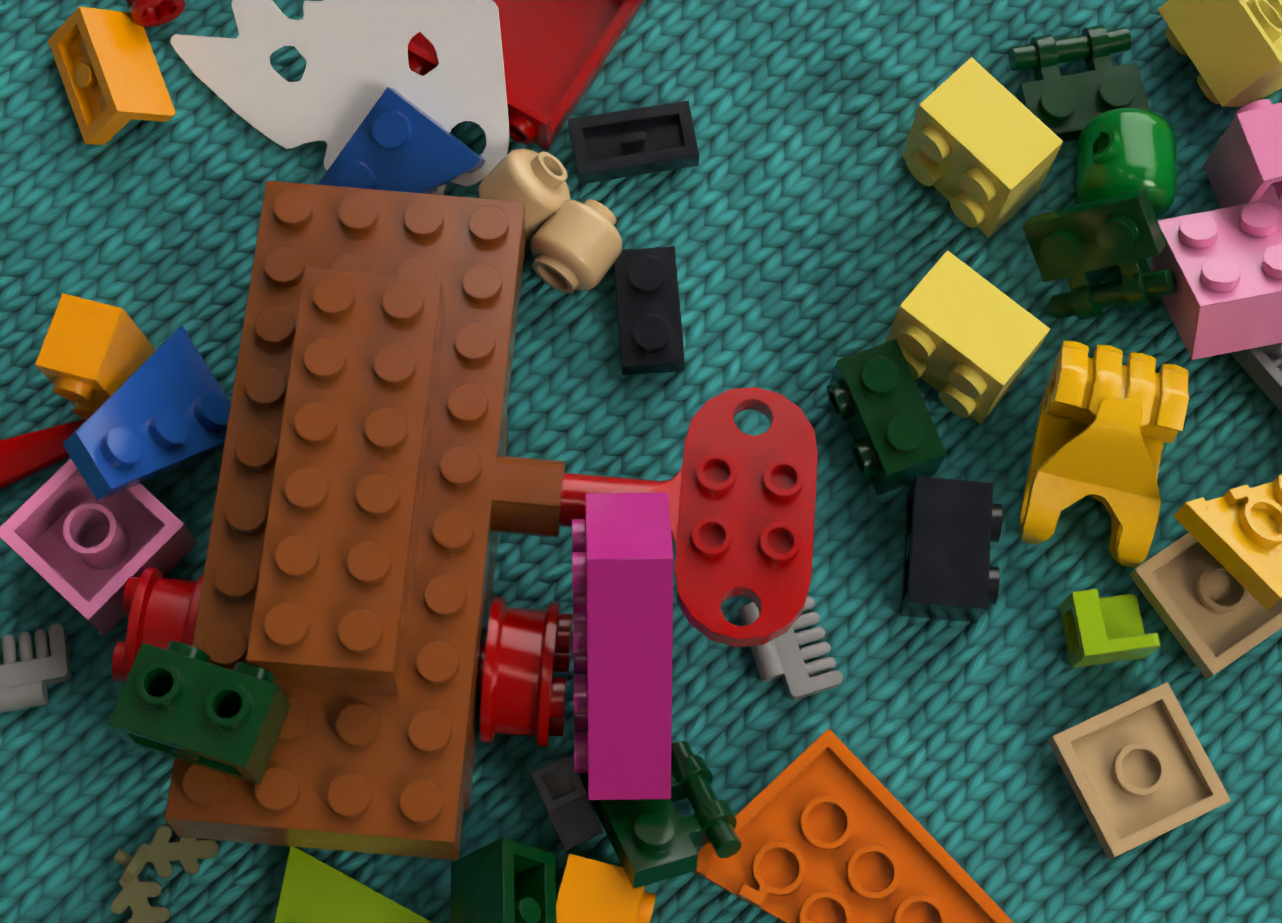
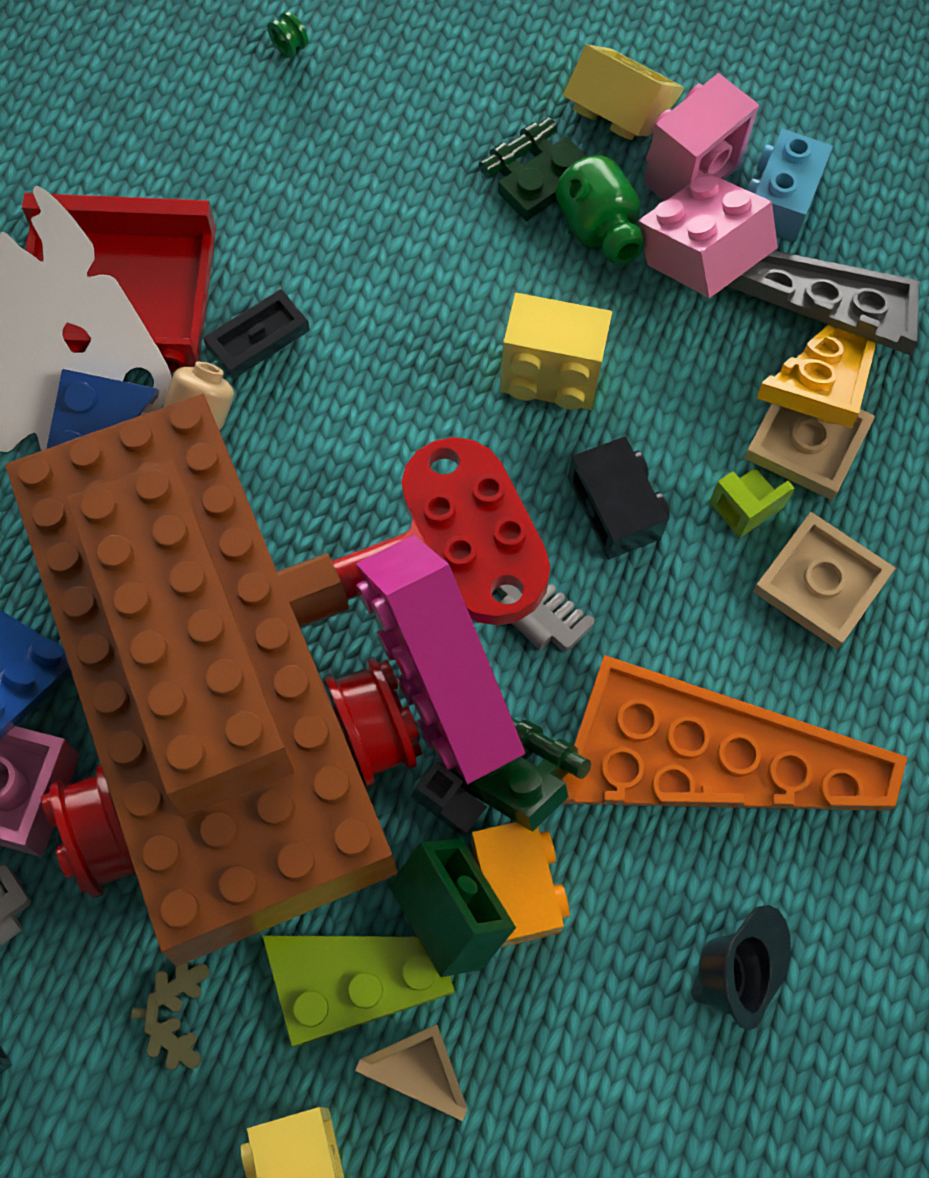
camera: 25 degrees left, 5 degrees down
(201, 710) = (149, 853): dark green brick -> none
(576, 246) = (253, 418): tan head -> none
(648, 311) = (326, 440): black plate -> none
(885, 417) = (528, 430): dark green brick -> none
(979, 148) = (496, 227): light yellow brick -> none
(1097, 236) = (604, 247): dark green plate -> none
(1103, 439) = (678, 379): yellow piece -> none

